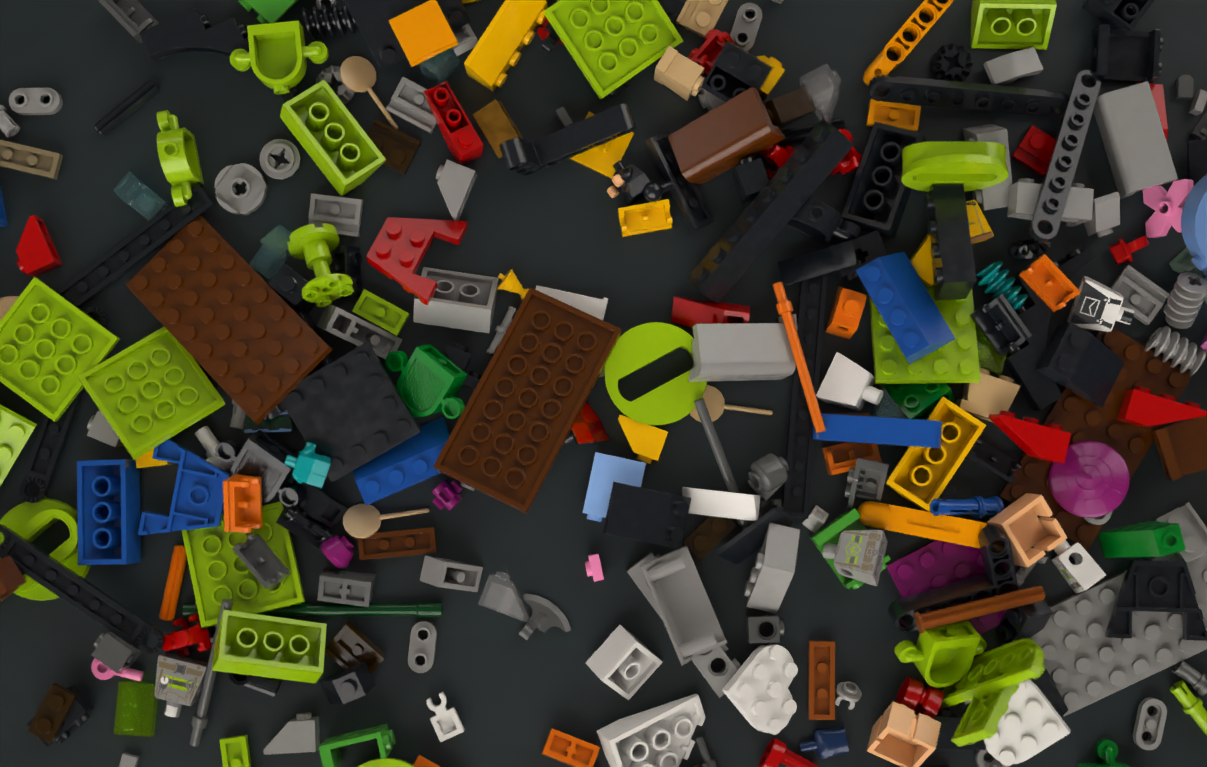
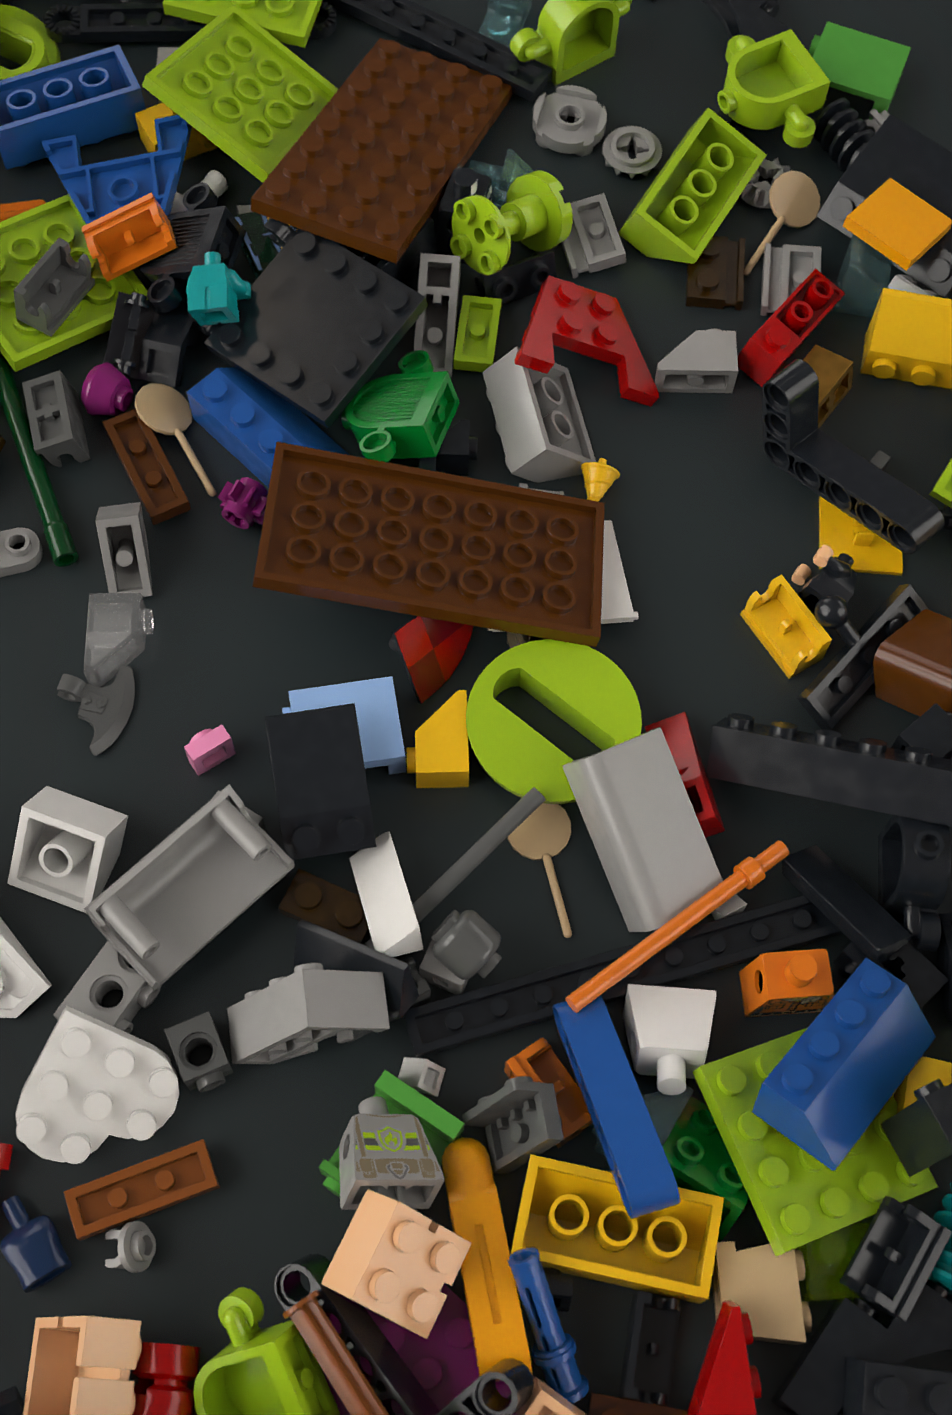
camera: 70 degrees right, 20 degrees down
(915, 569) = (396, 1263): none -> light nougat piece

